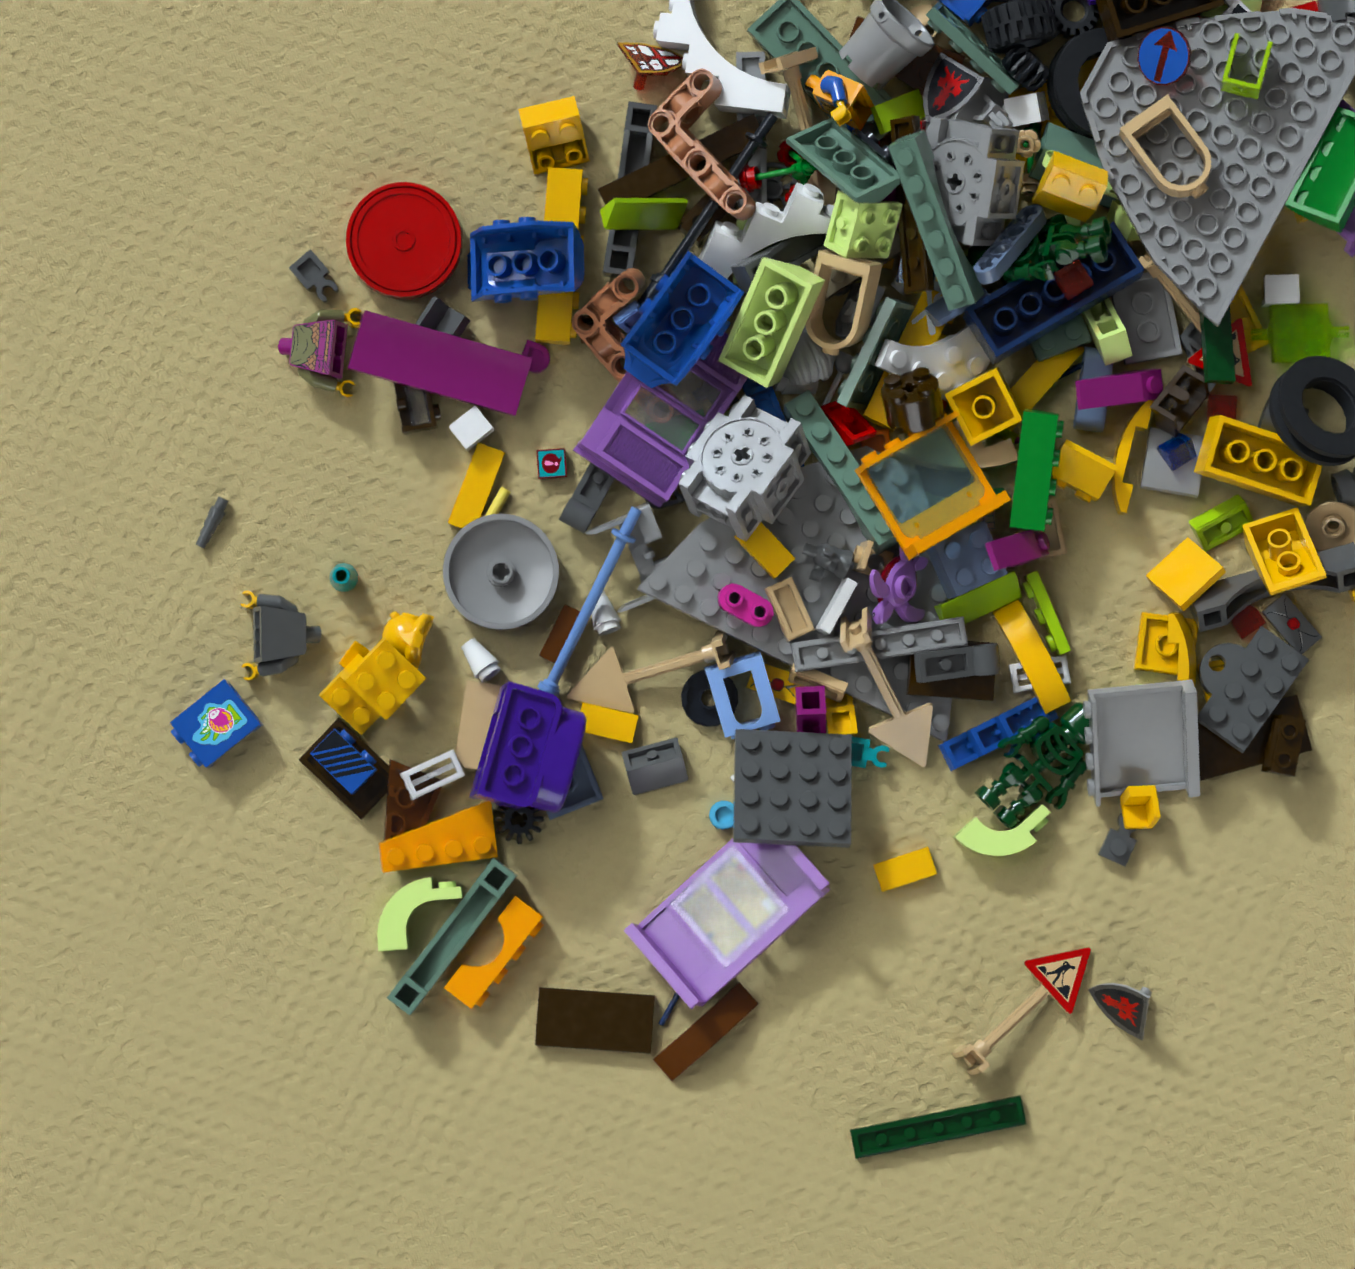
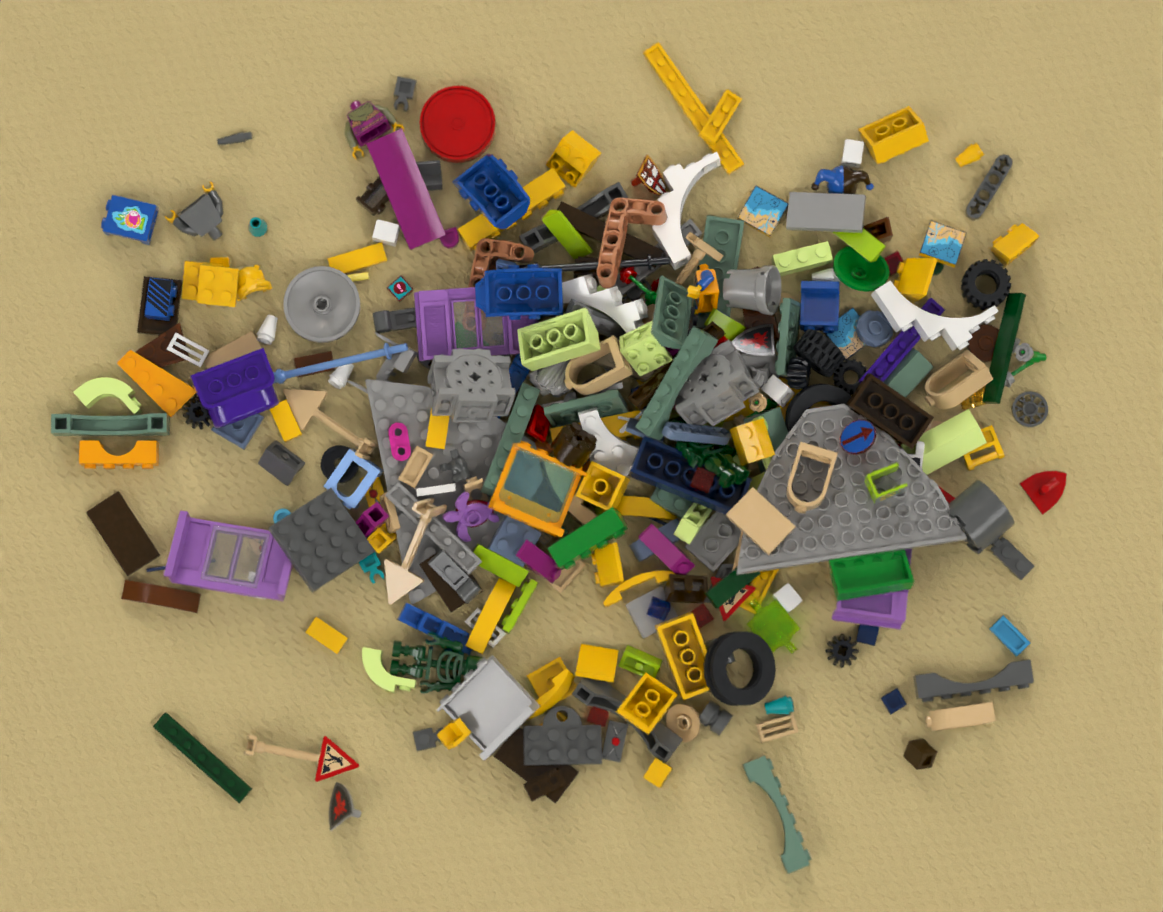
camera: 55 degrees right, 5 degrees down
(1177, 249) = (760, 521): none -> tan tile

